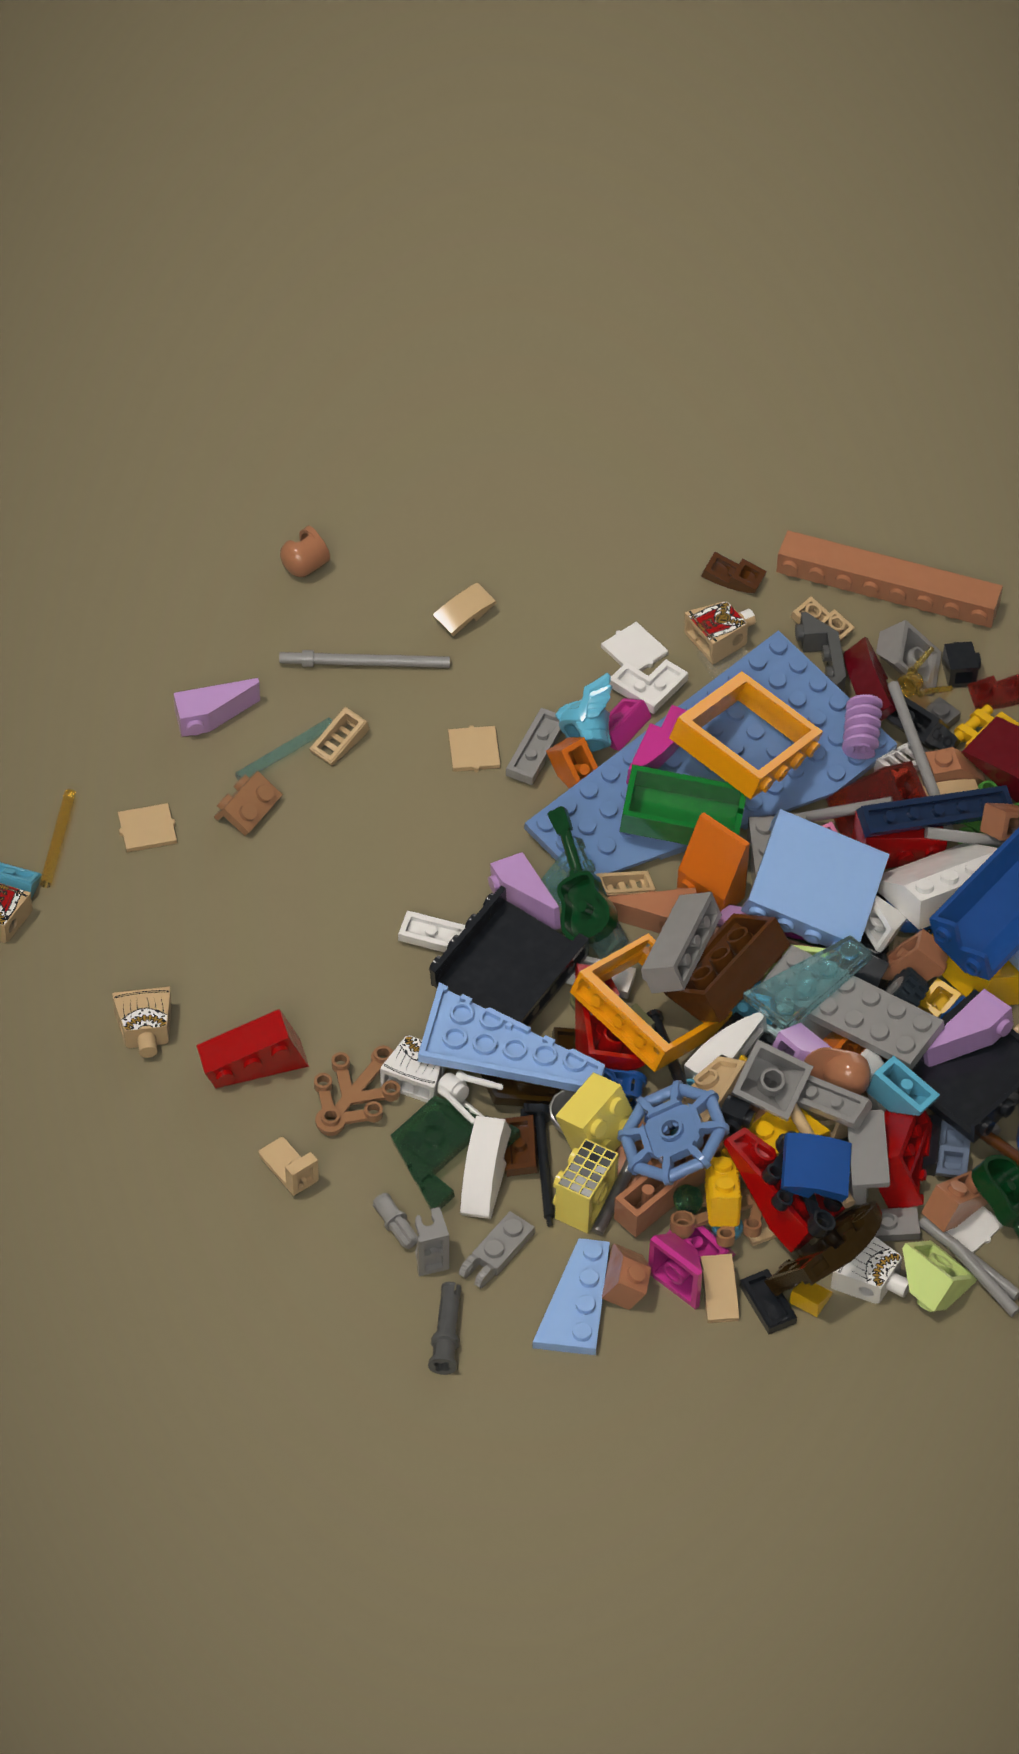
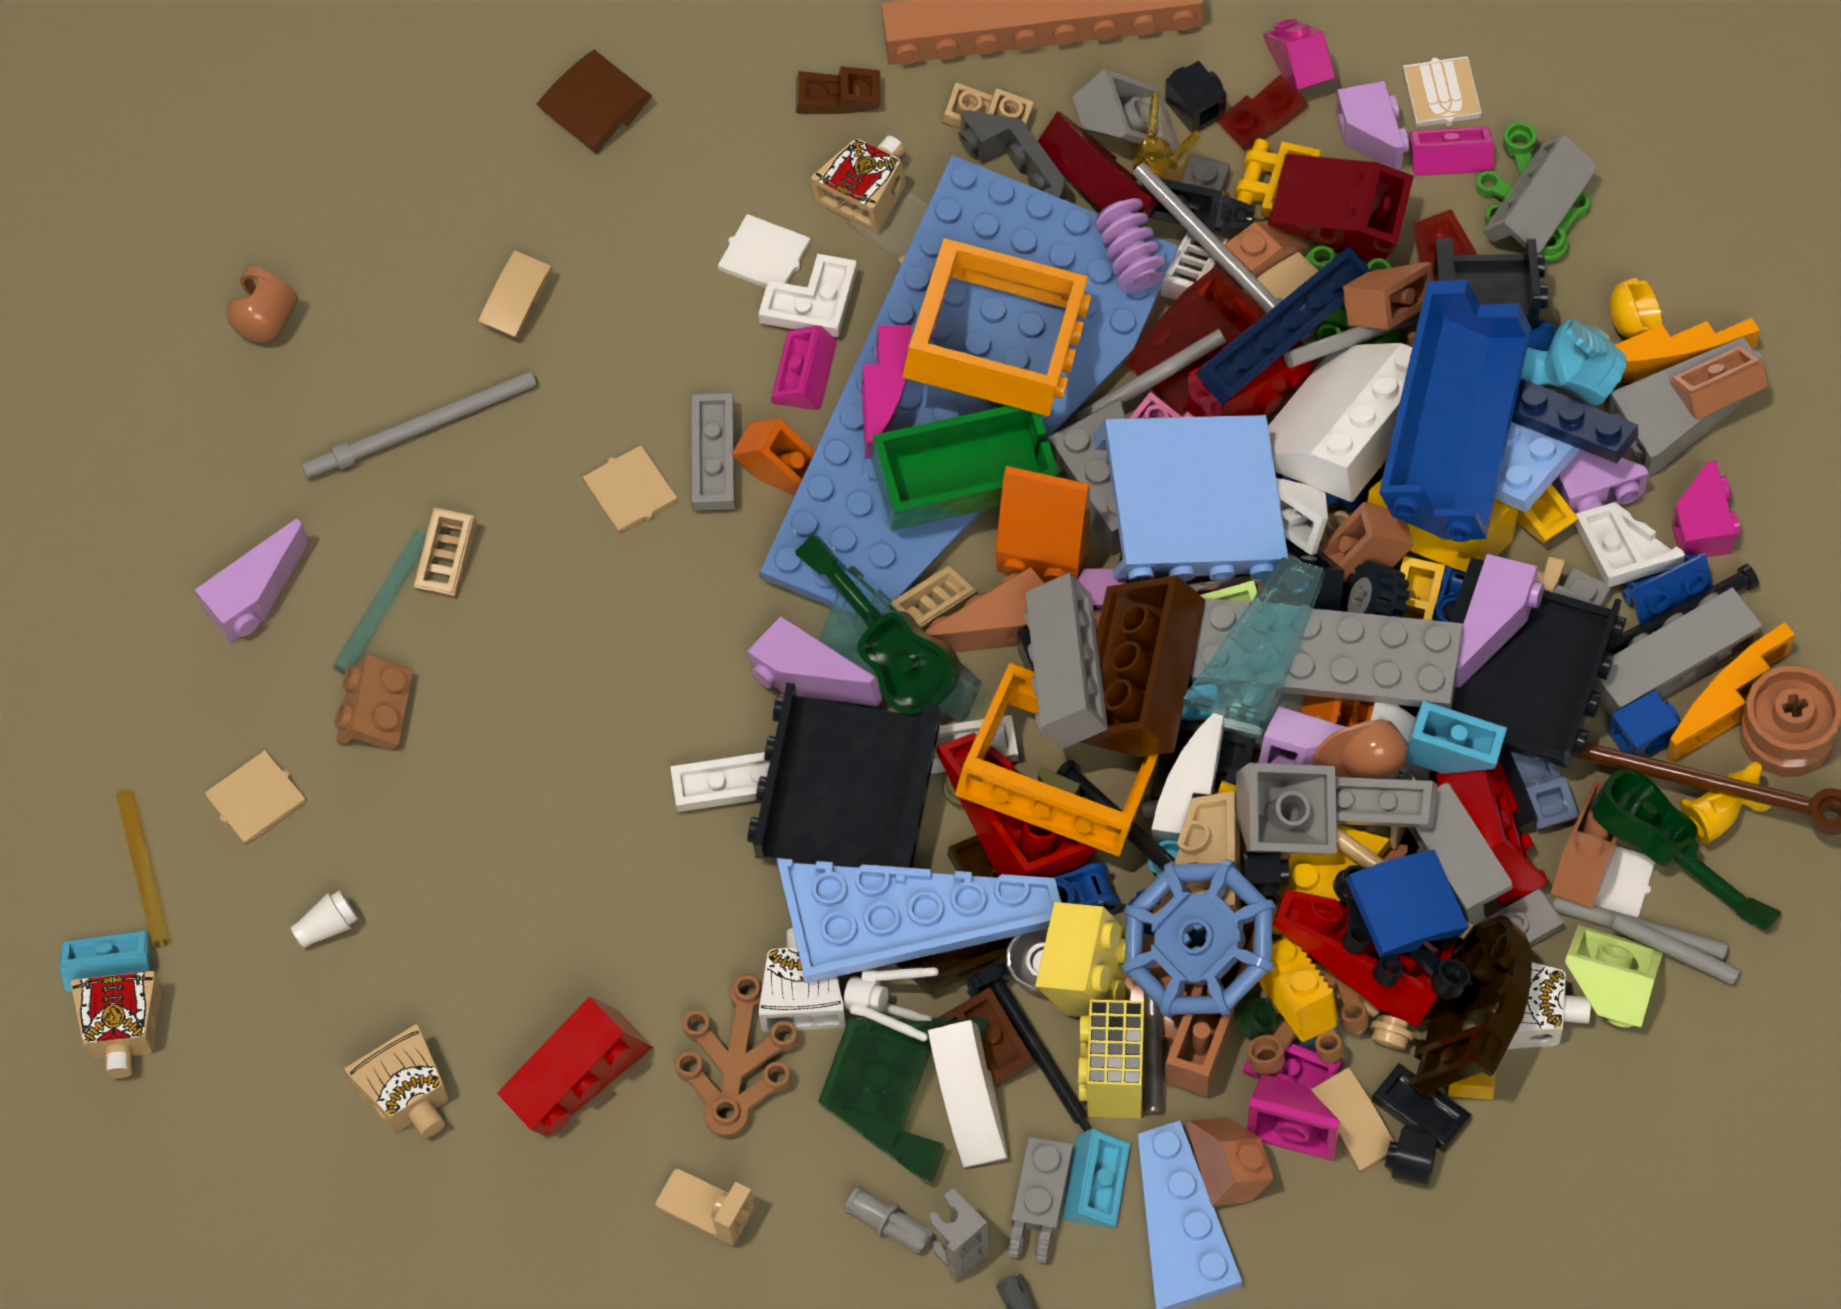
camera: 20 degrees left, 10 degrees up
(151, 910) = (327, 918): none -> white cone
(539, 1254) = (1096, 1179): none -> medium azure slope
(577, 518) = (594, 100): none -> reddish brown slope
(588, 716) = (763, 382): medium azure helmet -> none
(745, 1323) = (1412, 1155): none -> black plate
(772, 1249) = (1391, 1032): none -> tan plate

